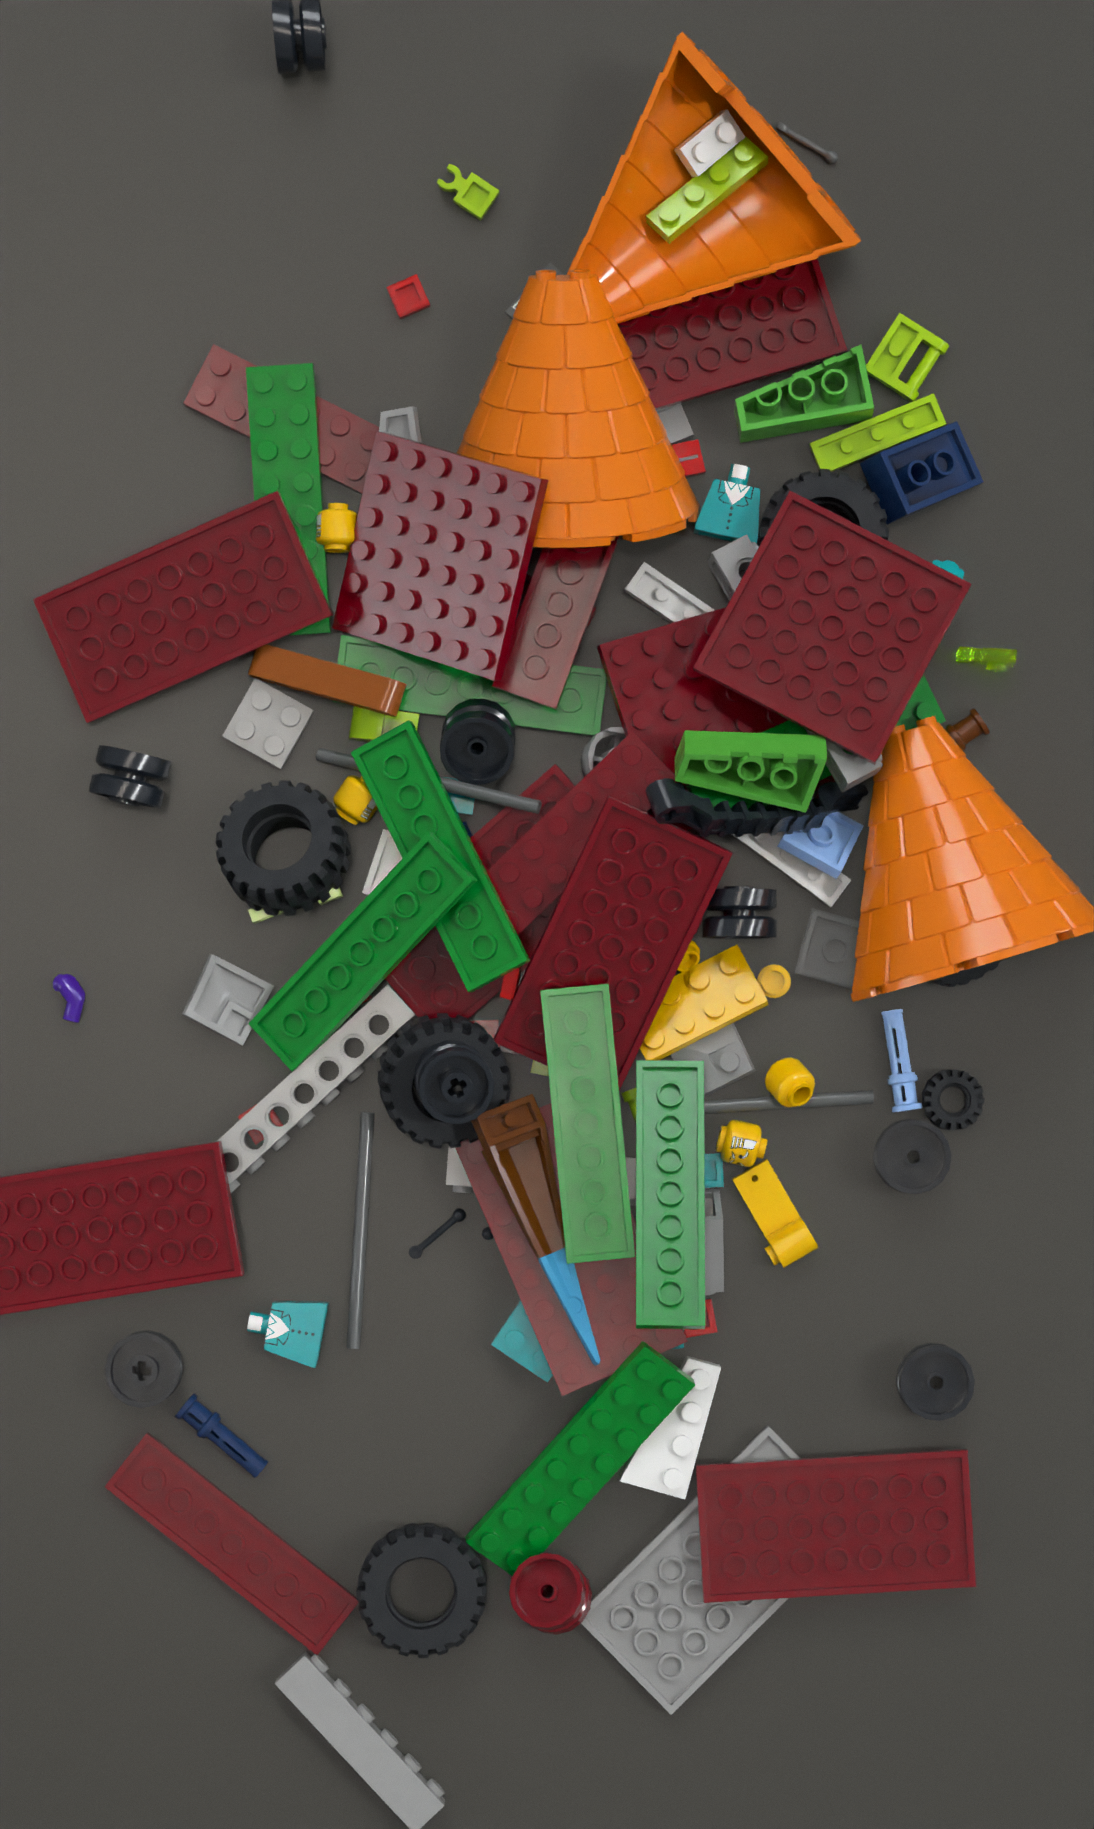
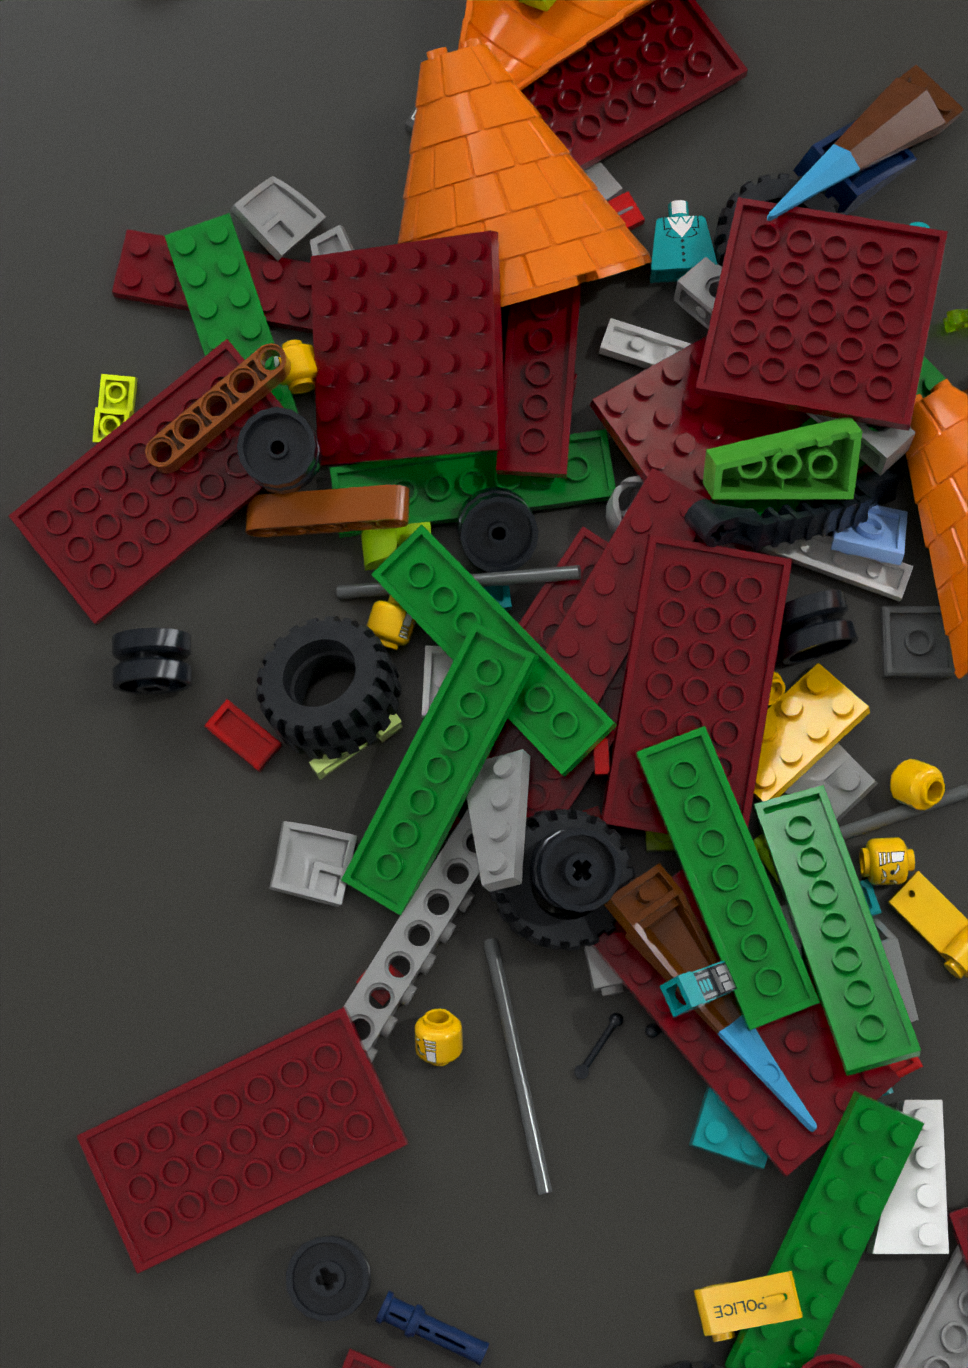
camera: 10 degrees left, 10 degrees down
(72, 993) = (151, 902): dark purple arm -> none
(157, 517) = (115, 404): none -> neon yellow slope
(195, 863) = (243, 735): none -> red tile
(235, 559) = (200, 411): none -> dark orange beam
(268, 723) = (279, 576): light grey plate -> none
(292, 1329) = (475, 1190): teal torso -> none
(296, 1188) = (438, 1037): none -> yellow head
(316, 621) = (276, 429): none -> black wheel
(358, 372) = (277, 216): none -> light grey plate
(401, 1014) = (499, 818): none -> light grey wing
(408, 296) = (306, 137): red tile -> none
(472, 194) = (341, 27): lime plate -> none
(497, 1492) = (747, 1304): none -> yellow door
(531, 1216) = (698, 987): none -> teal leg
(774, 981) = (867, 688): yellow plate -> none
(809, 400) = (725, 124): bright green wedge -> none
(878, 434) = (790, 146): lime plate -> none
(897, 350) = (794, 61): lime plate -> none
(978, 441) = (902, 116): none -> reddish brown plate

